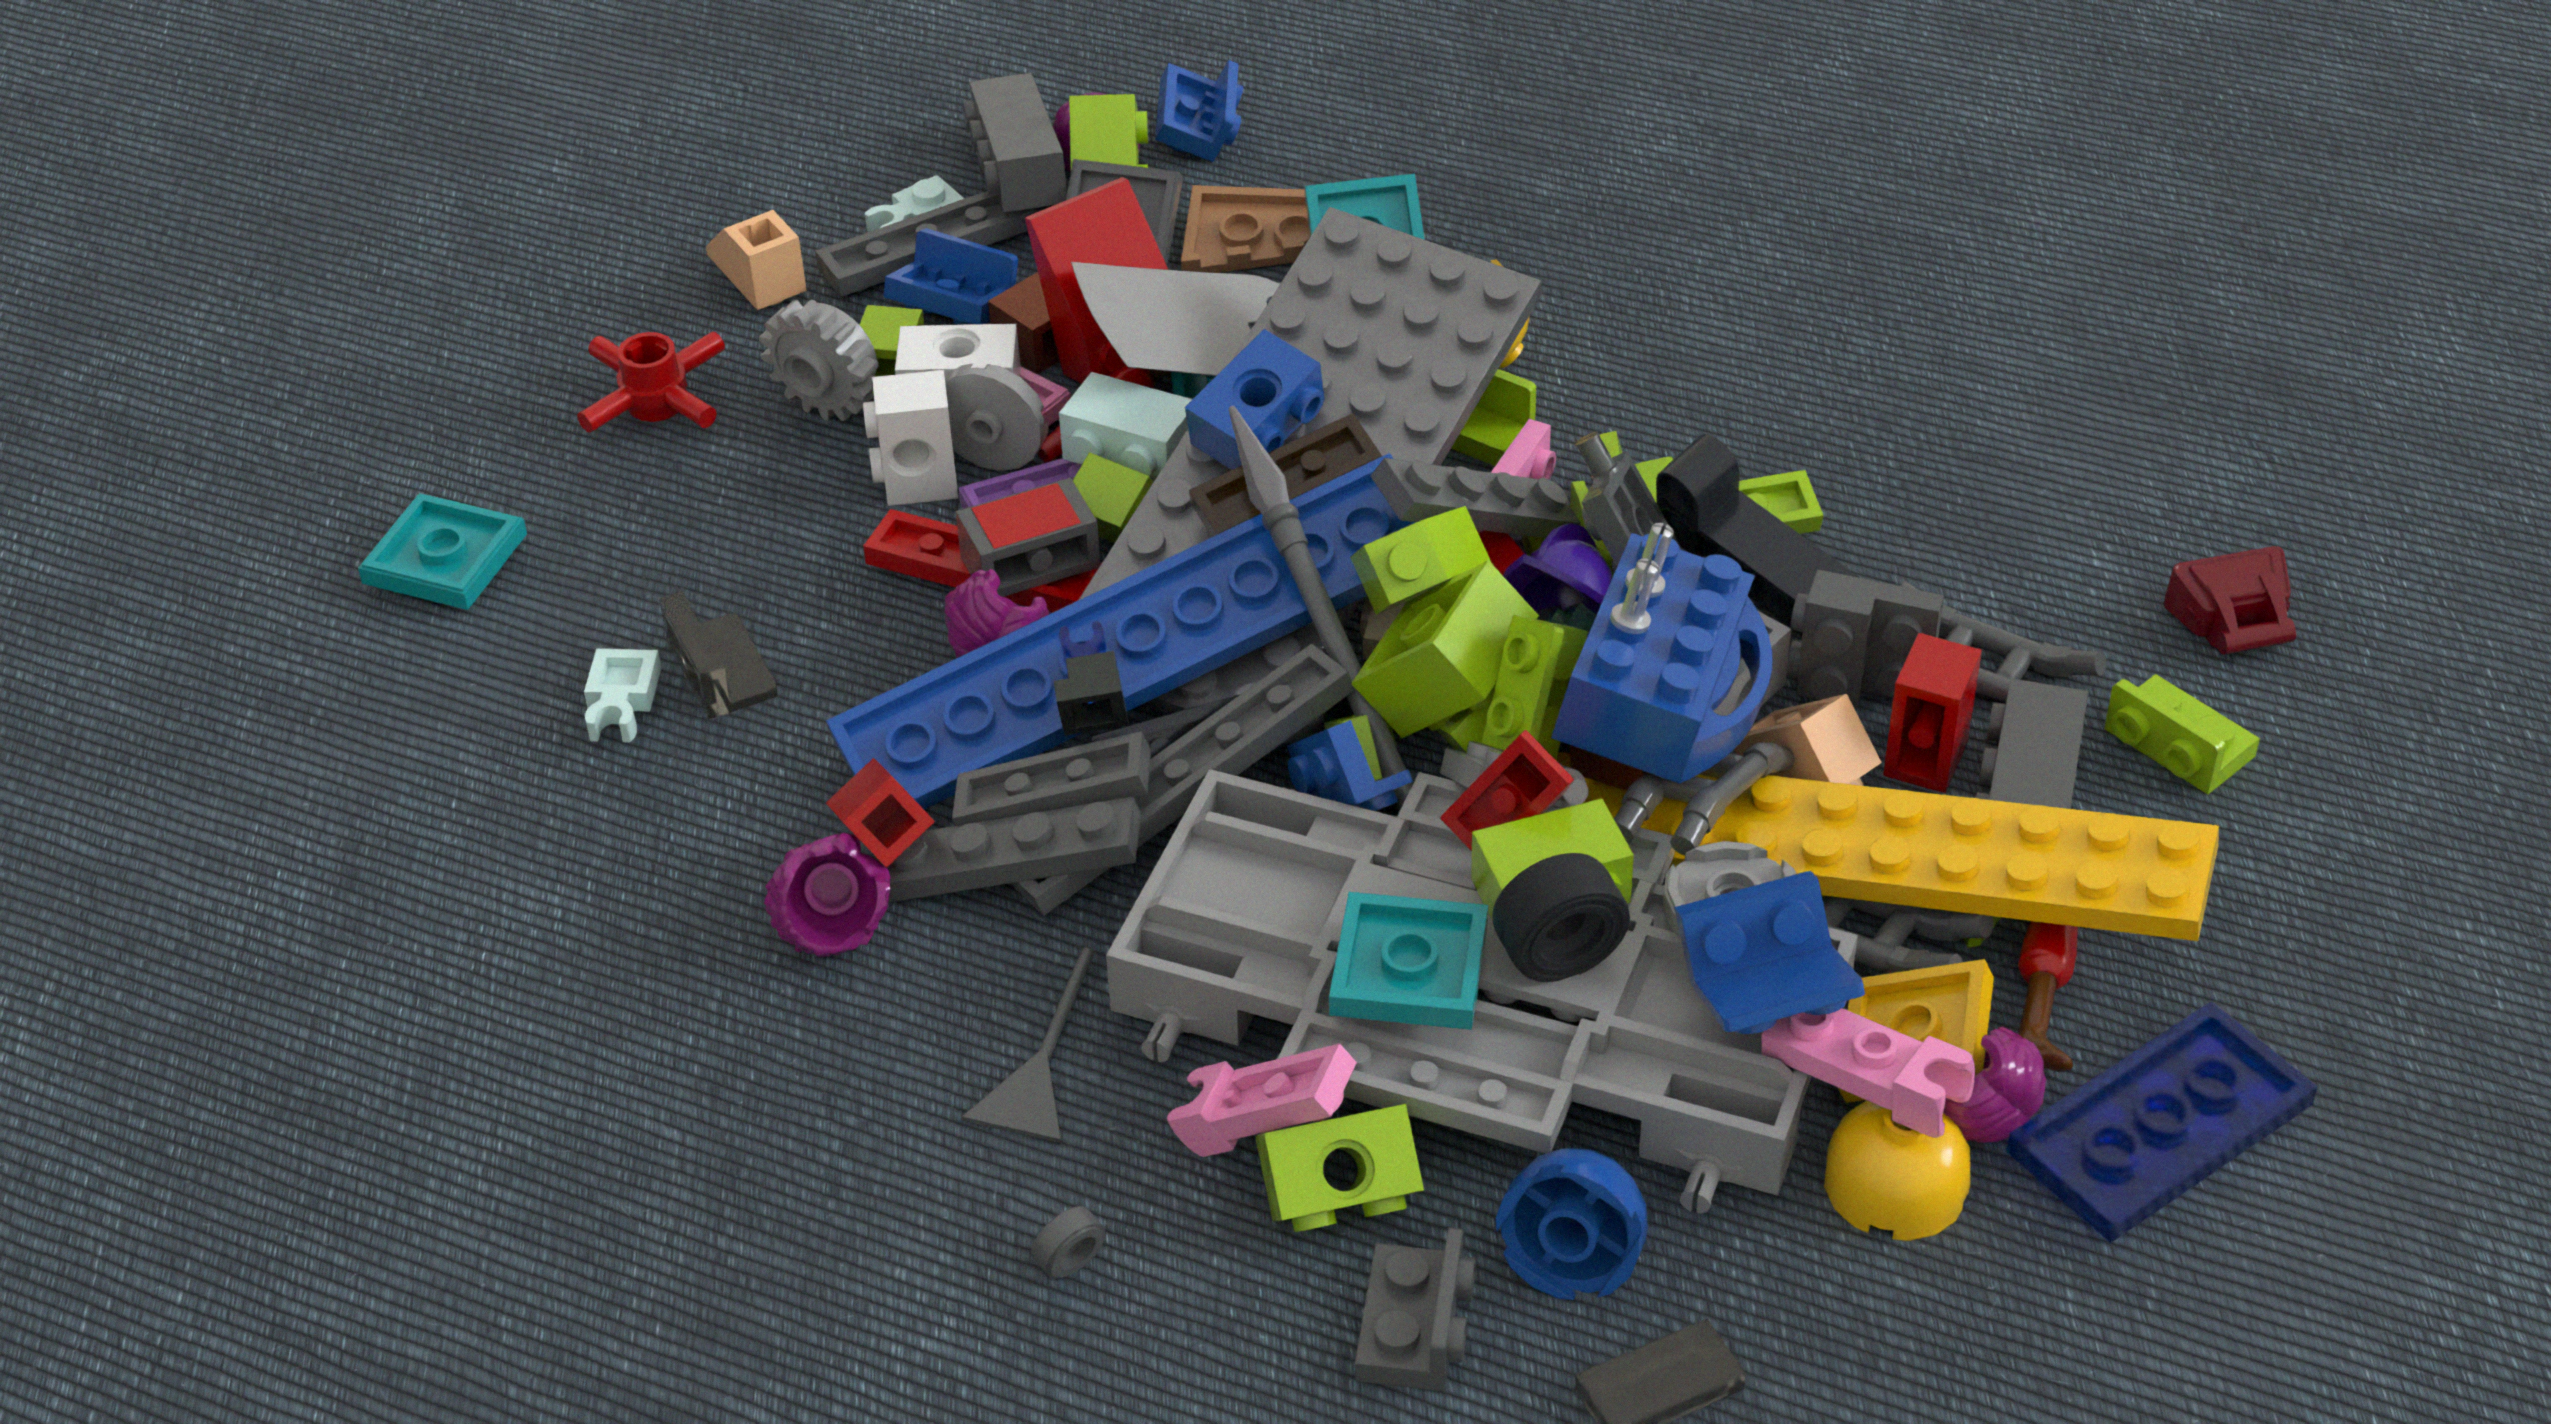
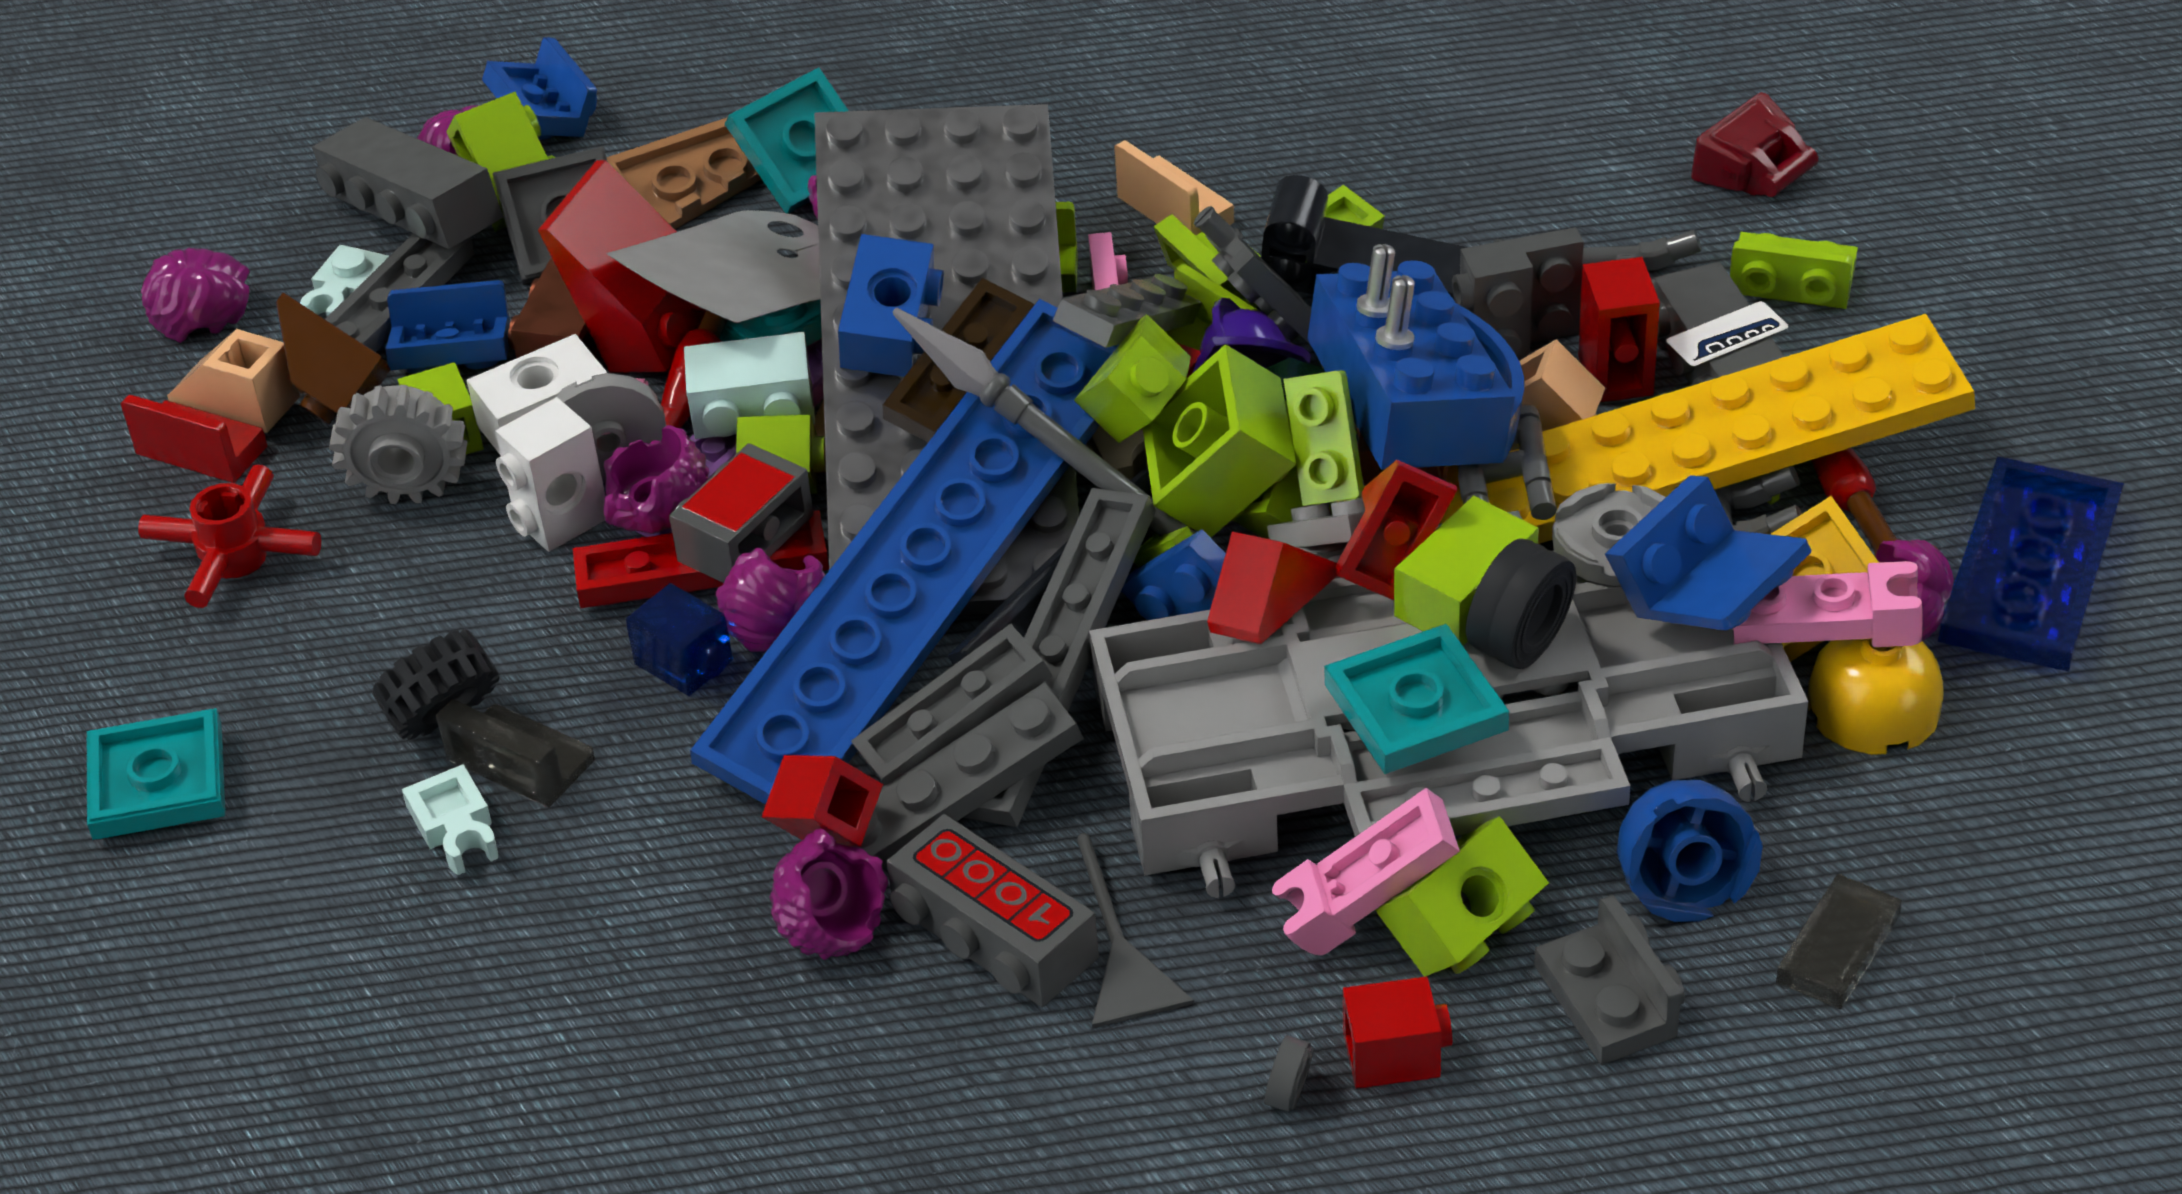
camera: 30 degrees left, 0 degrees up
(683, 562) = (431, 678): none -> black tyre
(698, 289) = (192, 438): none -> red panel
(793, 168) = (194, 292): none -> magenta hair
(824, 262) = (325, 361): none -> reddish brown slope
(909, 624) = (679, 639): none -> clear blue brick
(951, 977) = (993, 910): none -> dark grey brick
(983, 473) = (651, 480): none -> magenta hair
(1093, 692) = (932, 607): pearl dark grey piece -> none
(1184, 1253) = (1394, 1032): none -> red brick
(1372, 796) = (1264, 586): none -> red slope
(1650, 411) = (1163, 189): none -> light nougat panel
(2032, 762) = (1727, 333): none -> white sticker

